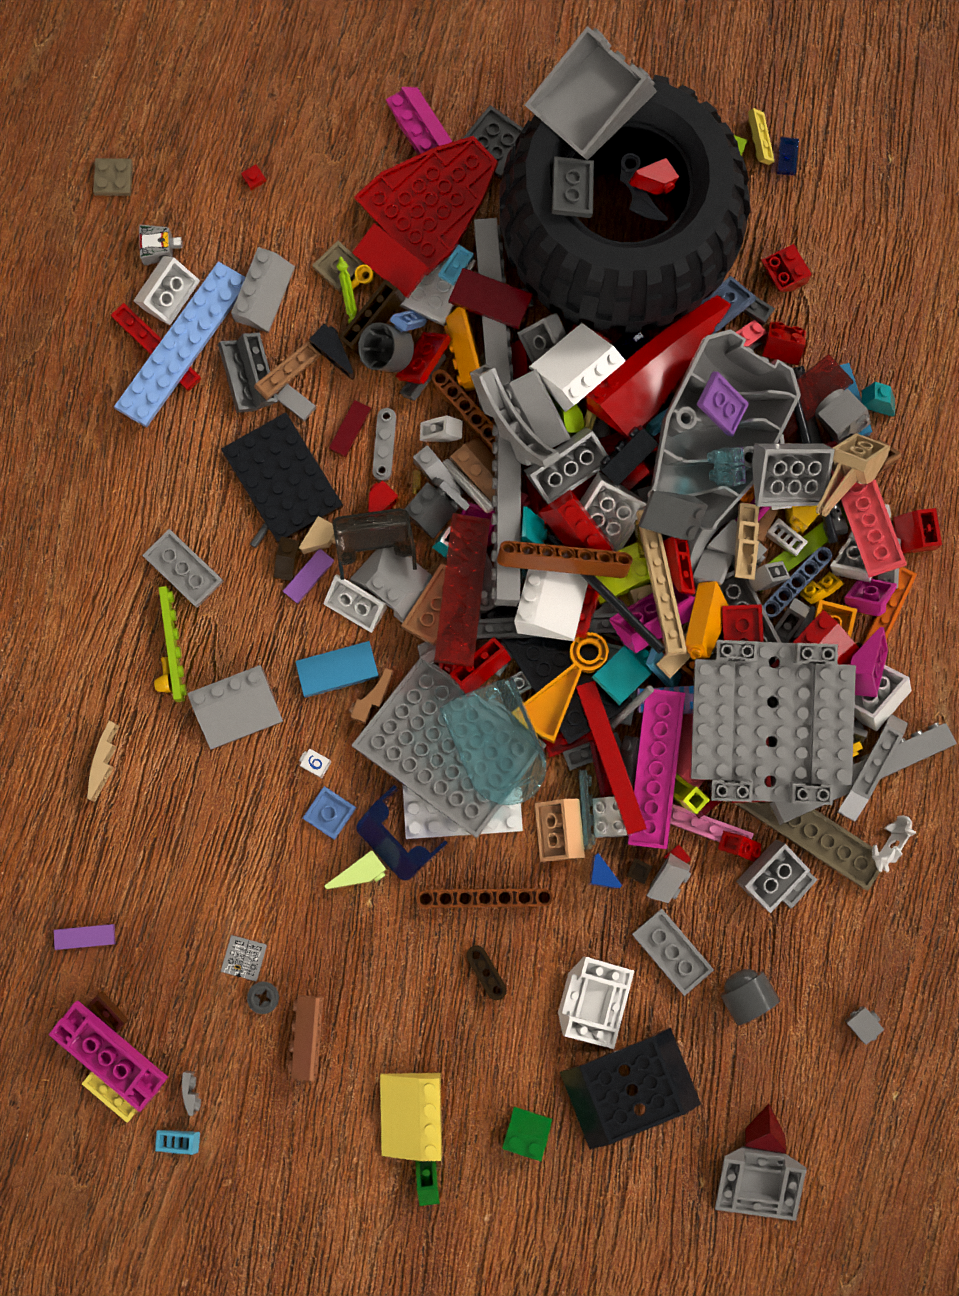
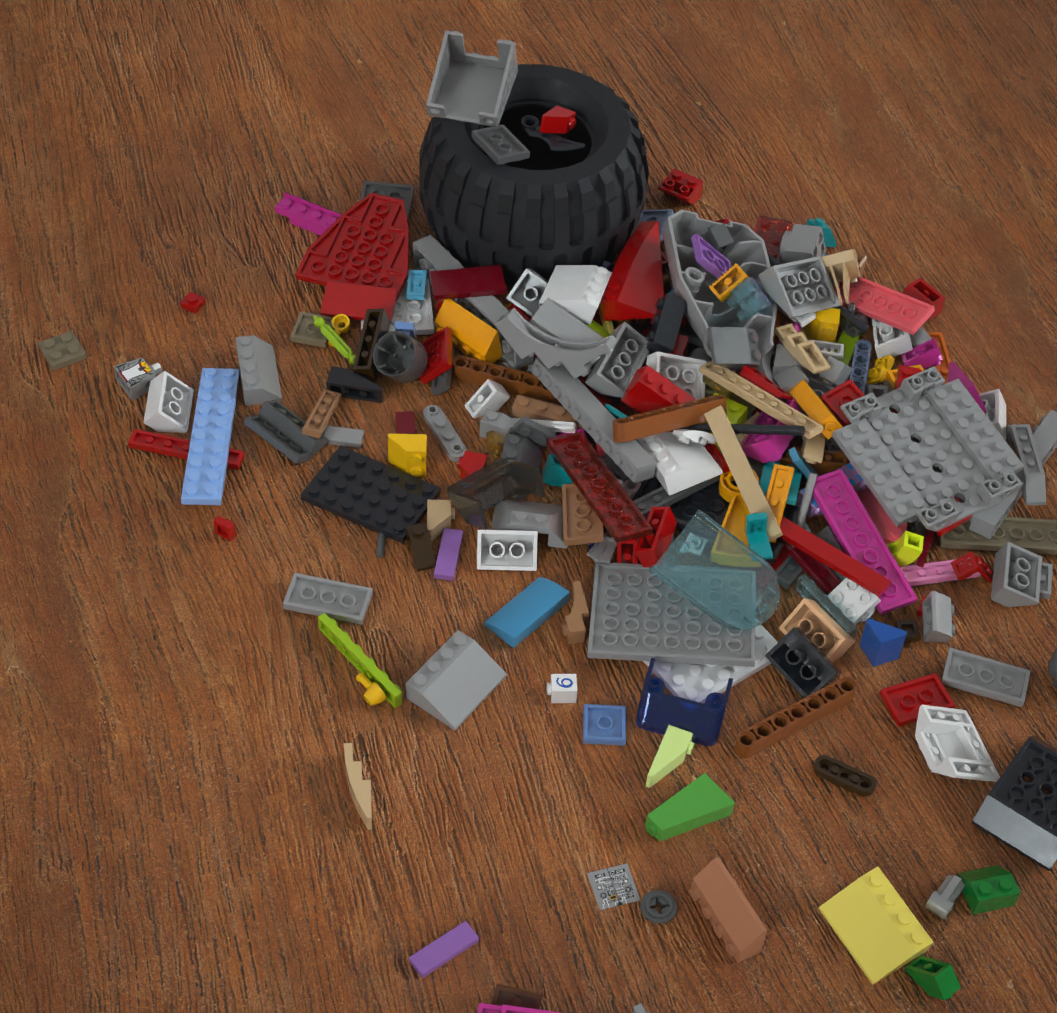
camera: 35 degrees left, 30 degrees down
(141, 450) = (224, 528): none -> red plate
(334, 459) = (408, 453): none -> yellow slope
(344, 930) = (689, 809): none -> bright green slope
(482, 1124) = (943, 899): none -> light grey piece
(524, 855) = (802, 663): none -> black slope
(556, 726) = (757, 536): none -> teal bracket
(576, 585) = (686, 436): none -> white slope
(590, 652) = (741, 469): none -> tan tile
(598, 939) = (906, 698): none -> red plate
(600, 695) = (778, 490): none -> light orange tile
(720, 438) = (727, 282): none -> light orange brick
(745, 377) = (718, 237): none -> dark grey brick

